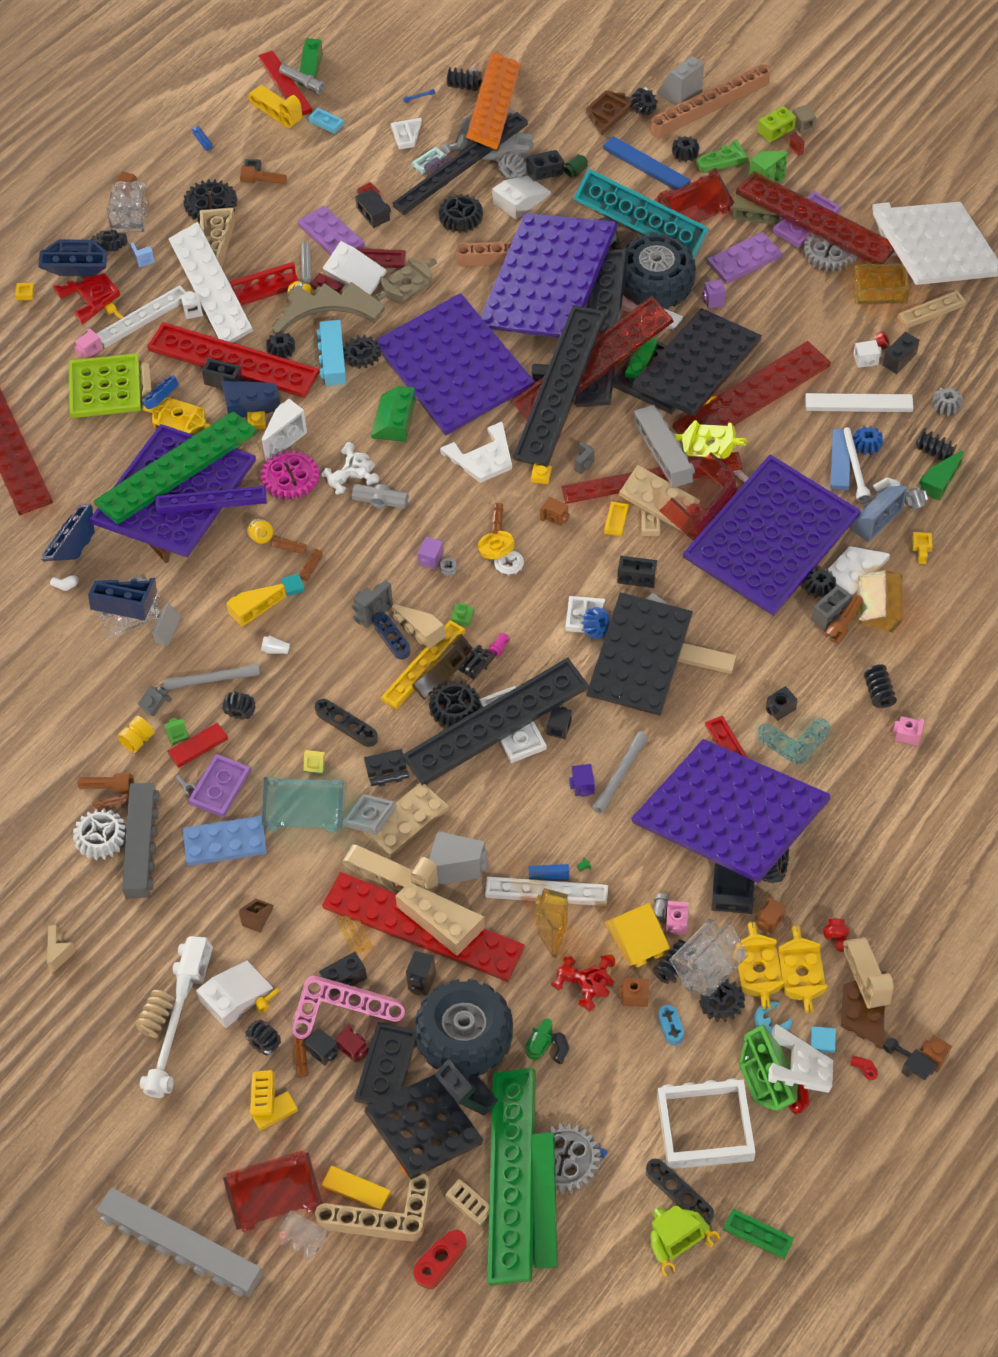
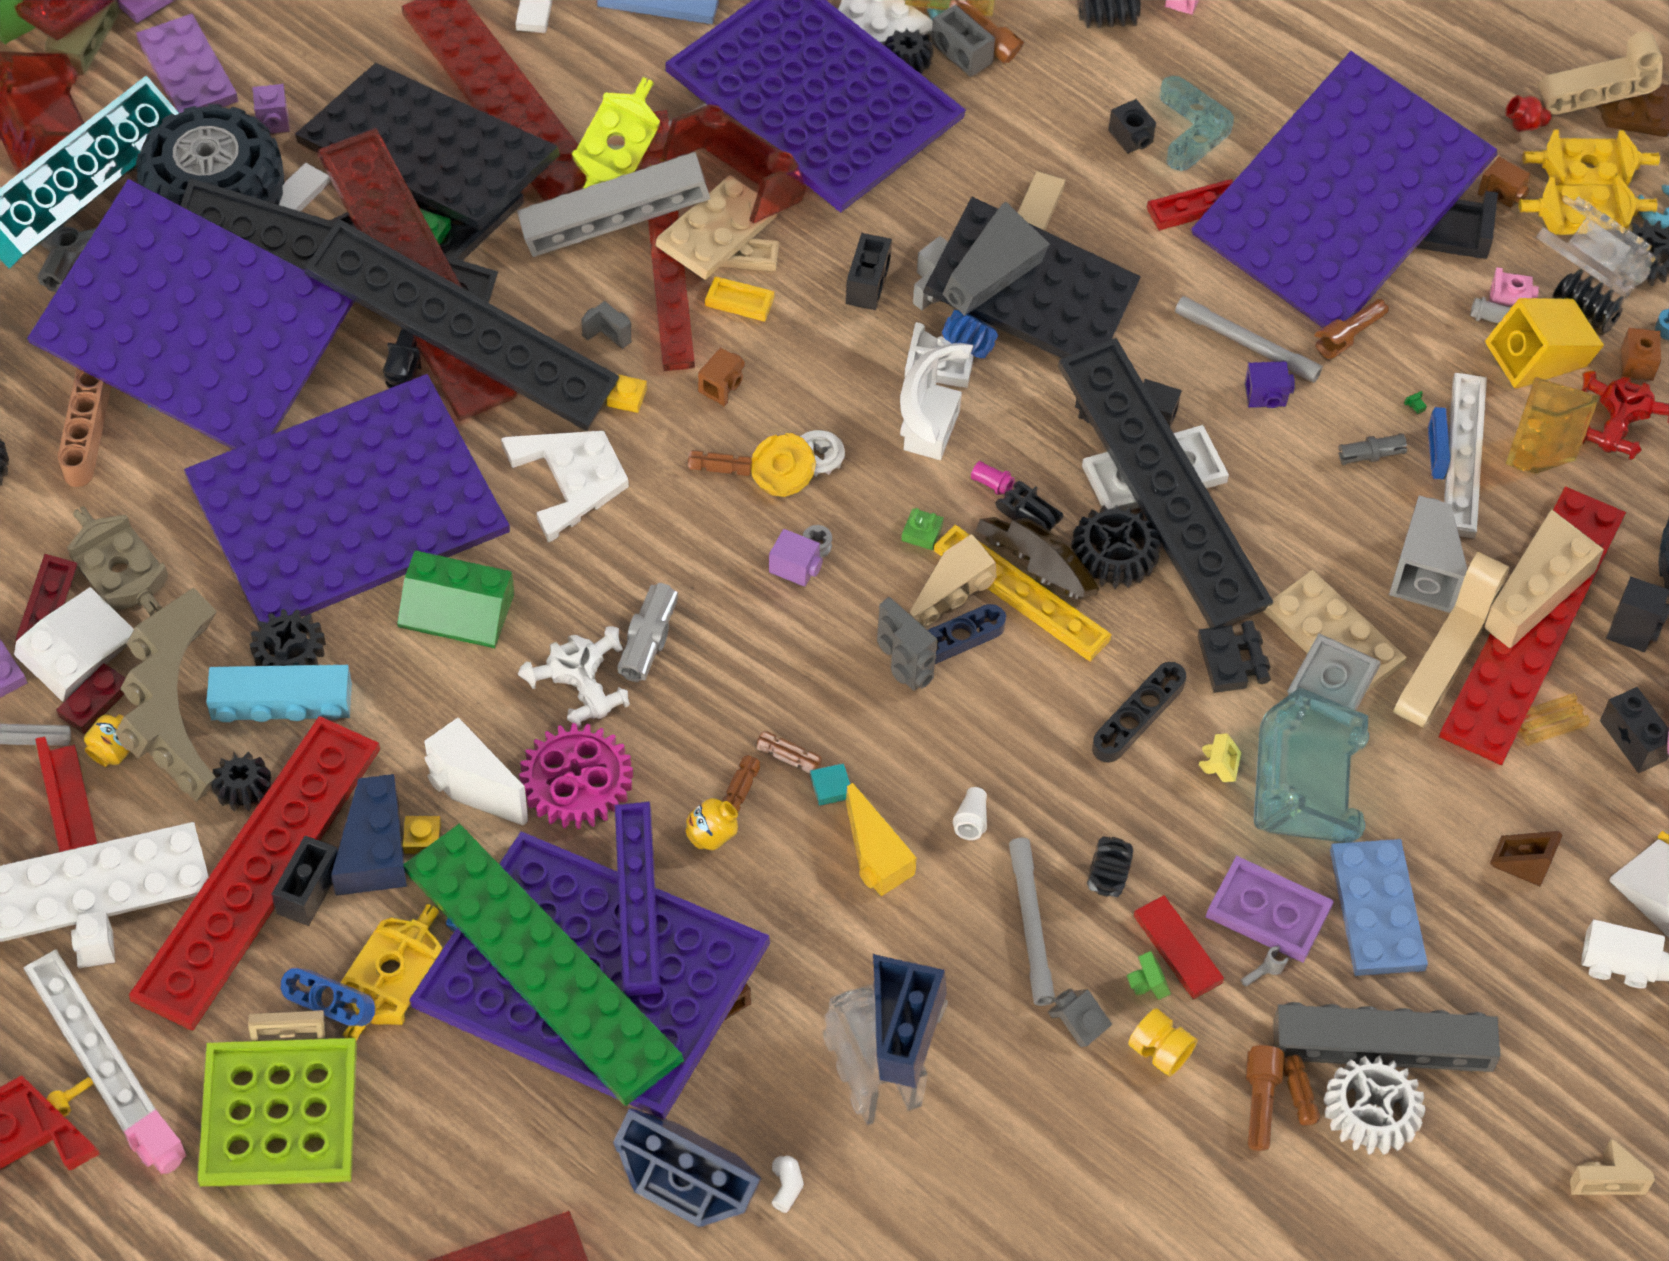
camera: 90 degrees left, 0 degrees up
(535, 602) = (929, 408): none -> white piece
(541, 838) = (1372, 449): none -> dark grey pin
(626, 818) = (1340, 334): none -> dark orange piece
(637, 619) = (995, 260): none -> dark grey slope

